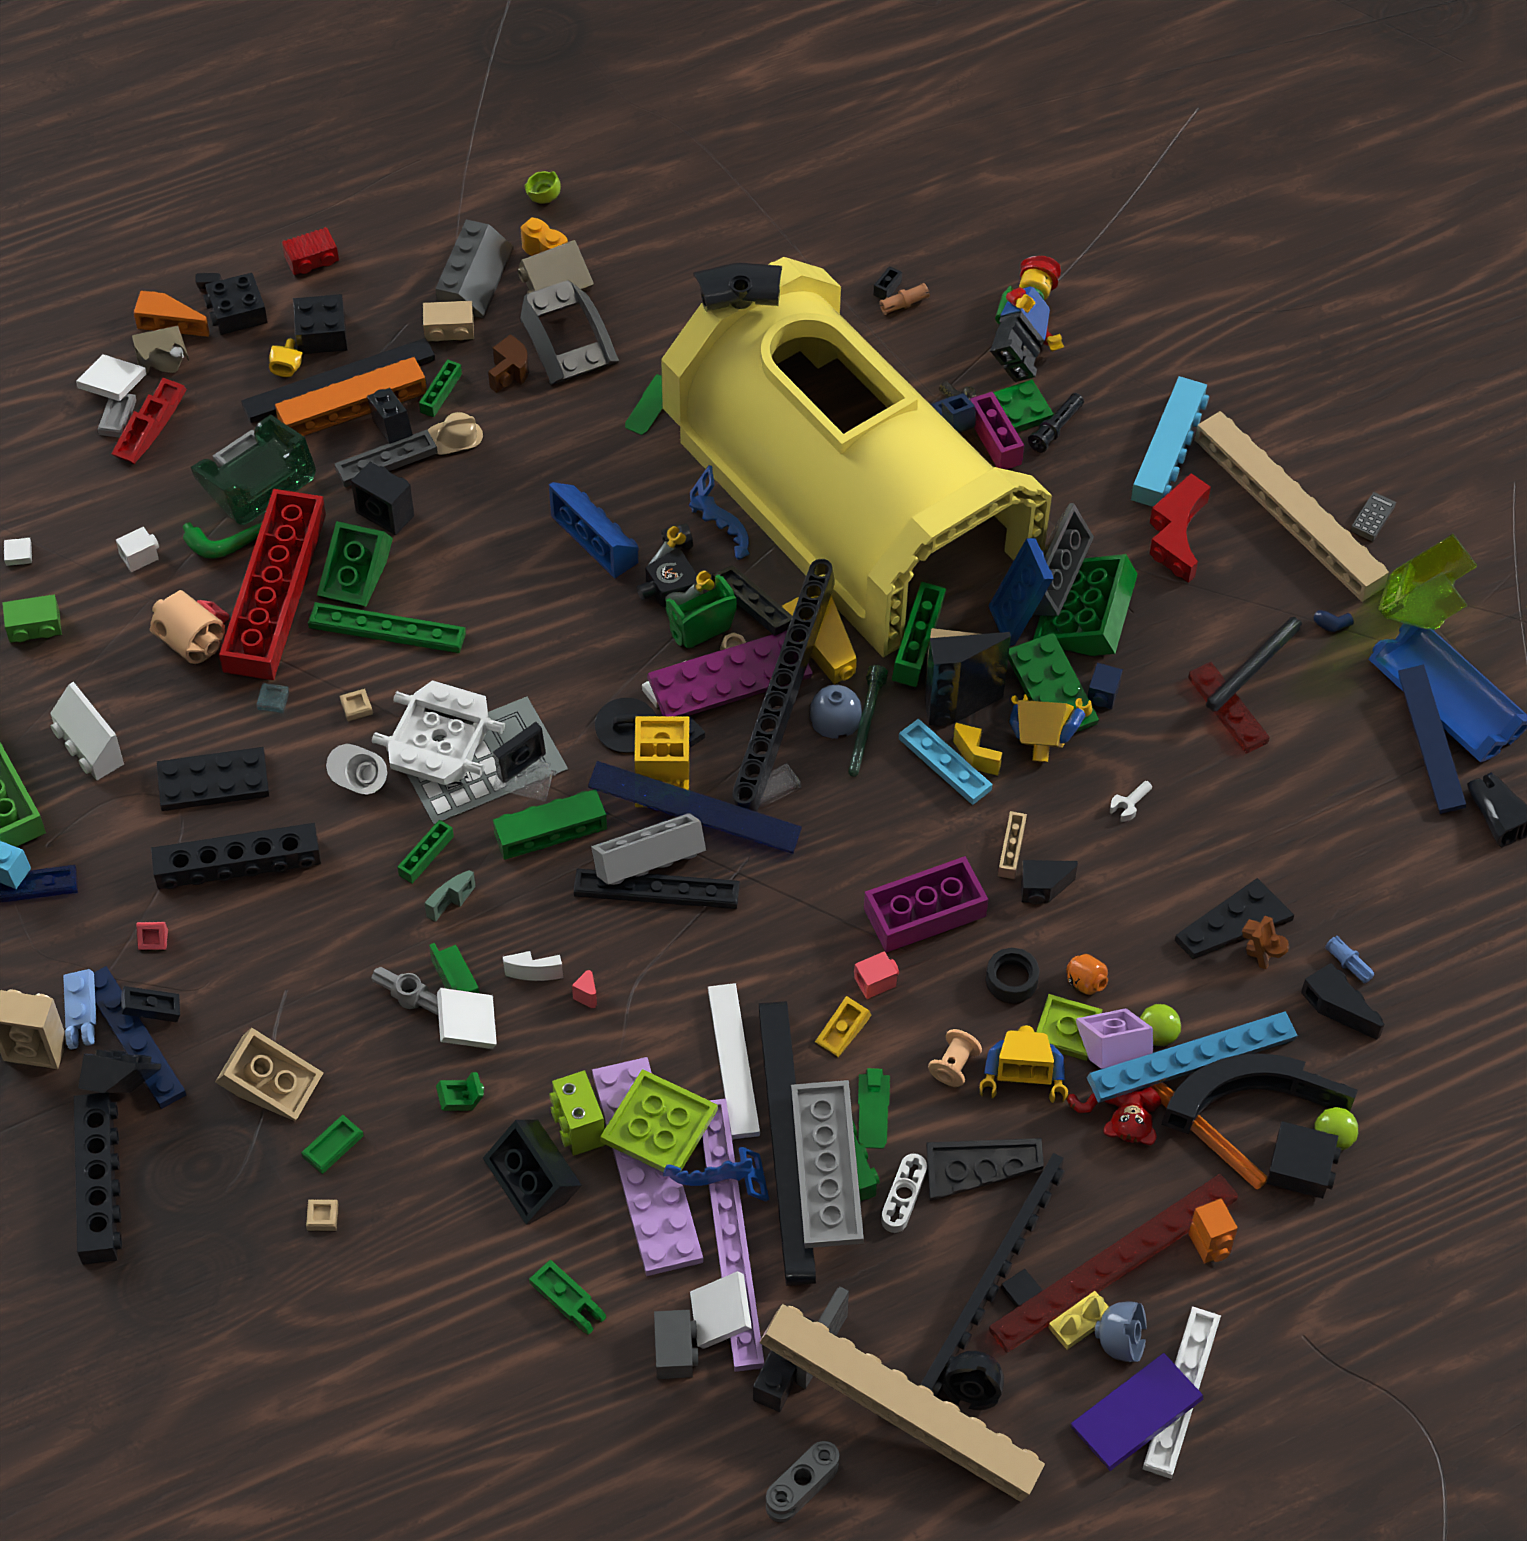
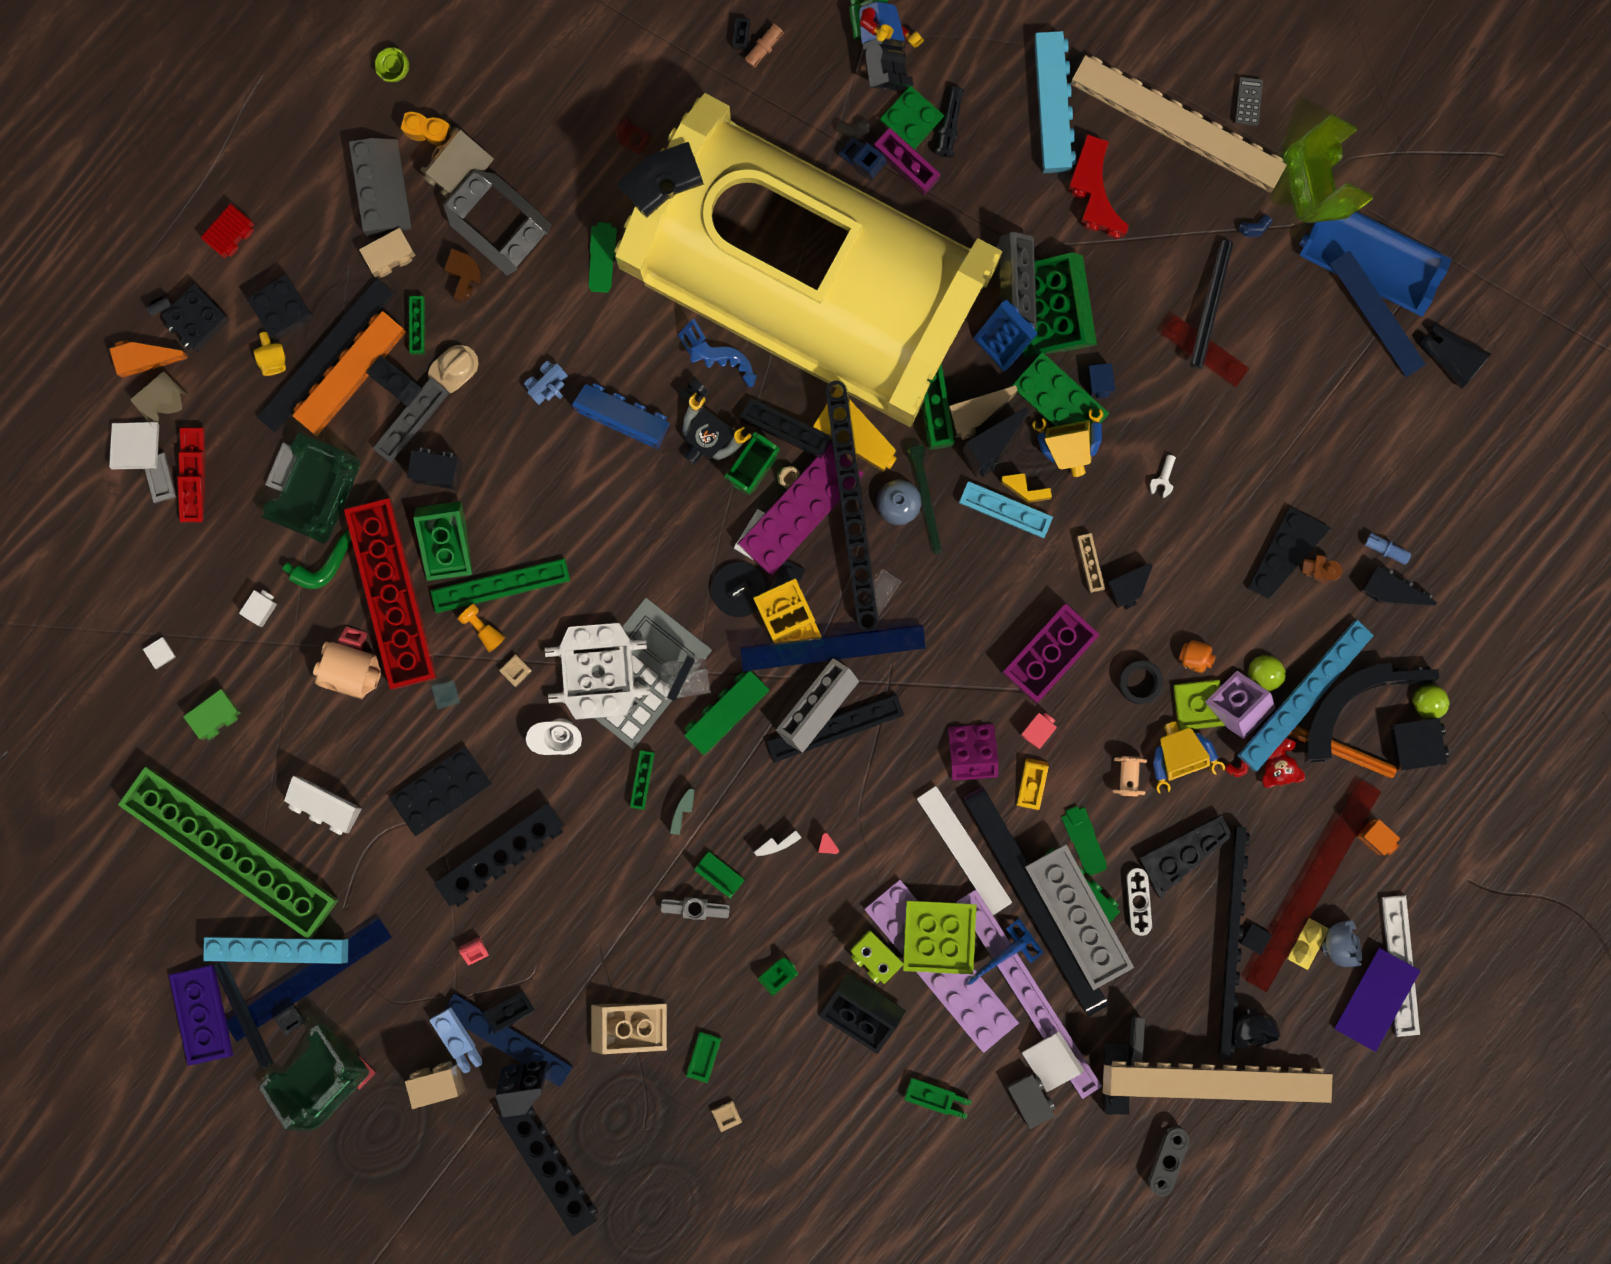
camera: 25 degrees left, 30 degrees up
(348, 661) = (488, 635): none -> light orange piece
(466, 1018) = (751, 913): white tile -> none
(536, 477) = (548, 385): none -> medium blue hips
(791, 969) = (973, 752): none -> magenta bracket

